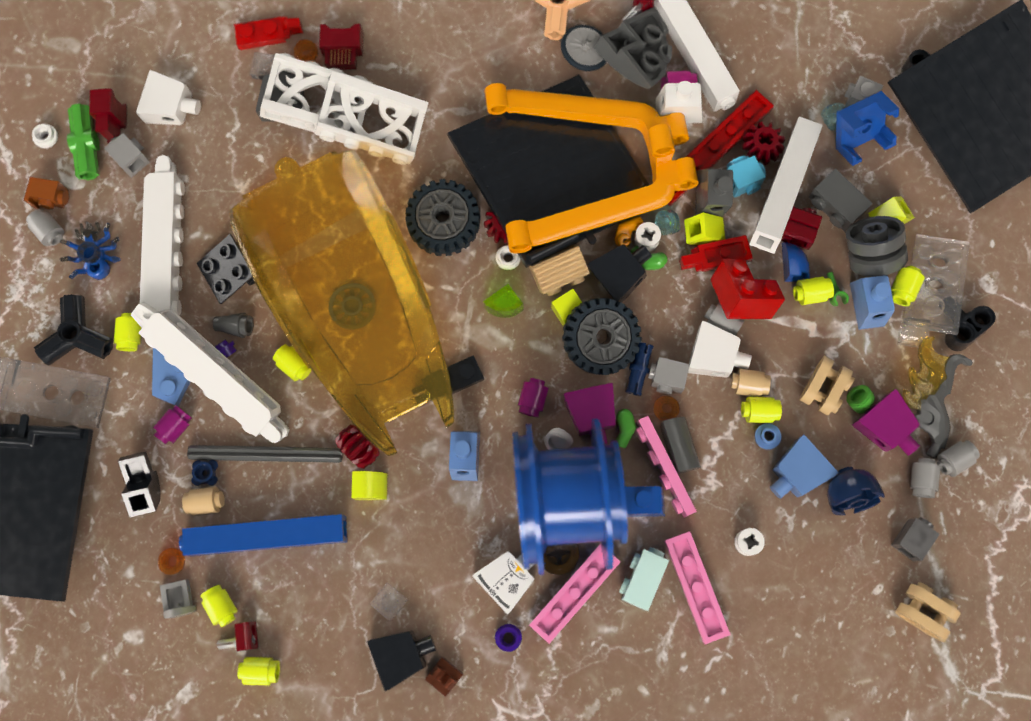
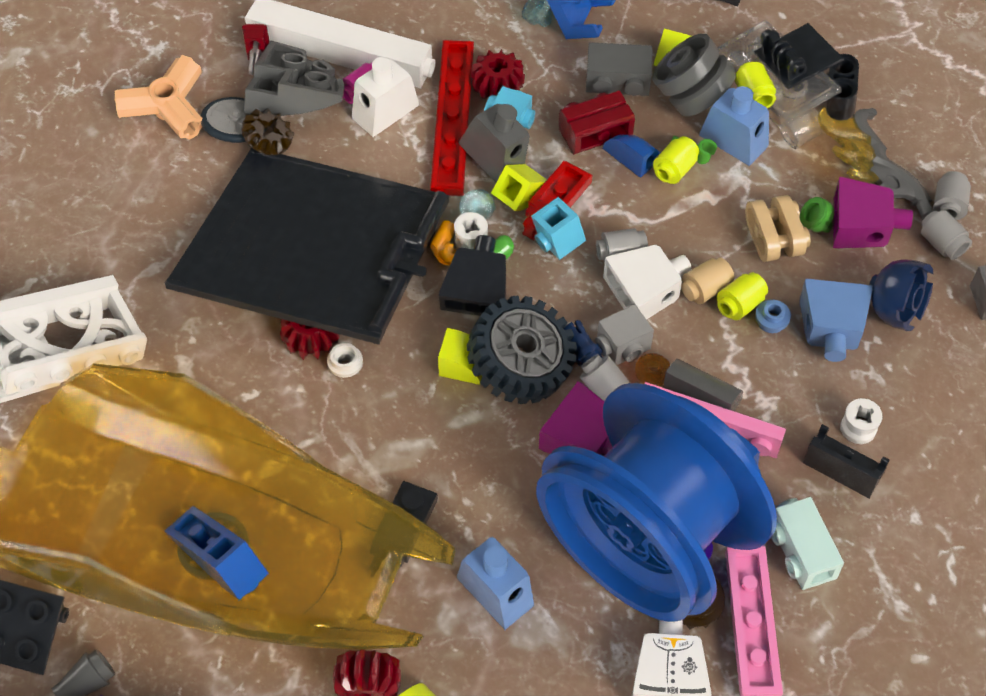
camera: 50 degrees left, 20 degrees down
(291, 363) = (199, 658): neon yellow brick -> none
(342, 315) = (218, 552): none -> blue slope
(437, 200) = (243, 352): wheel -> none
(504, 303) = (386, 403): clear neon green brick -> none
(533, 397) = (509, 468): magenta brick -> none
(560, 269) = (413, 326): tan brick -> none
(590, 83) = (274, 142): none -> dark brown gear
(627, 396) = (602, 375): none -> light grey brick
(660, 135) = (396, 134): light orange piece -> none
(694, 278) = (558, 228): none -> medium azure brick
(697, 588) = (862, 506): bright pink plate -> none
(716, 556) = (844, 463): none -> black hinge
(742, 294) = (618, 204): red brick -> none
(786, 185) = (561, 86): white brick -> none
(956, 287) = (796, 54): none -> black hinge

